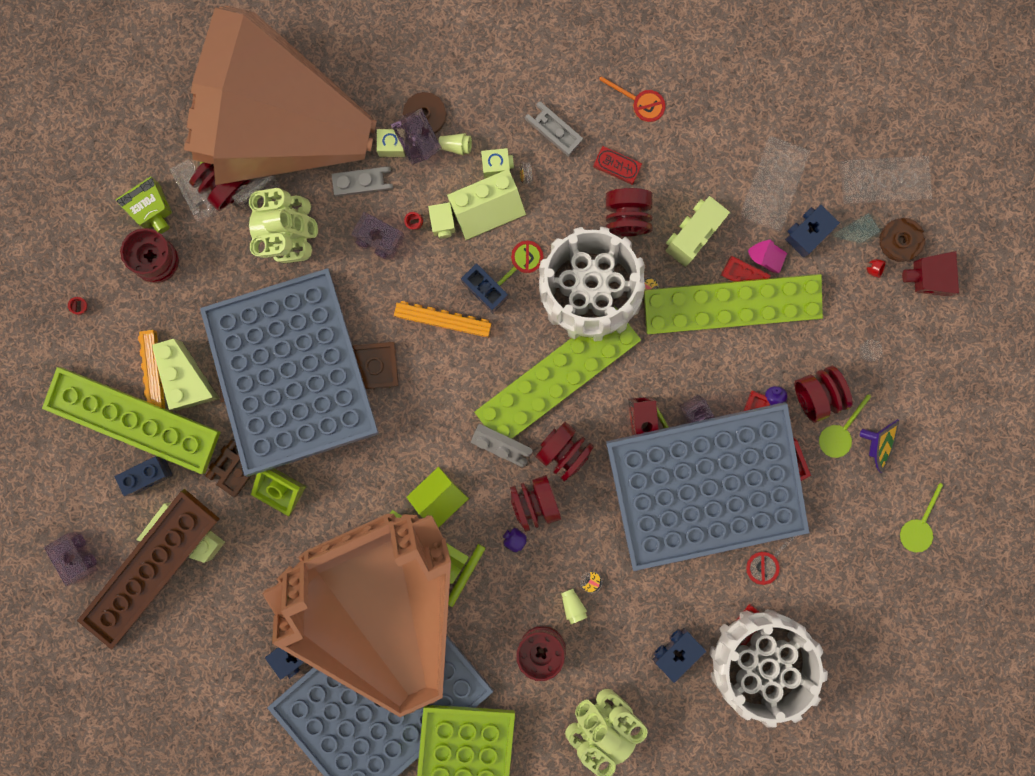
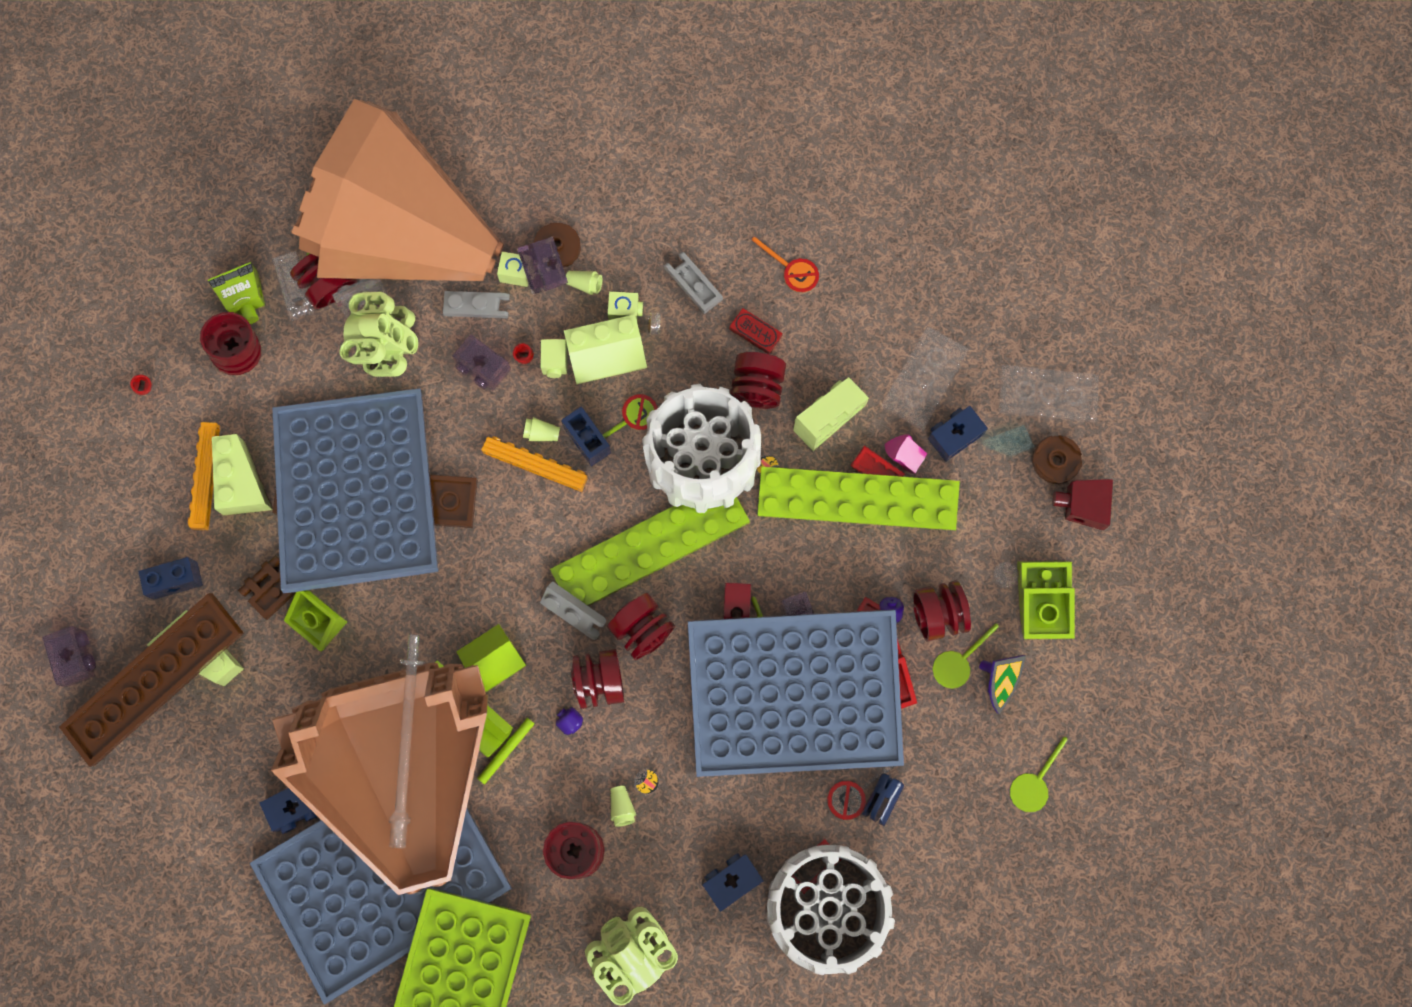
camera: 10 degrees right, 10 degrees down
(131, 420) = (171, 515): lime plate -> none
(388, 652) = (400, 818): none -> clear bar
(442, 289) = (540, 431): none -> yellowish green cone
(803, 559) = (888, 792): none -> dark blue arm
(877, 267) = (1025, 485): red hinge -> none
(910, 366) = (1046, 599): none -> lime slope

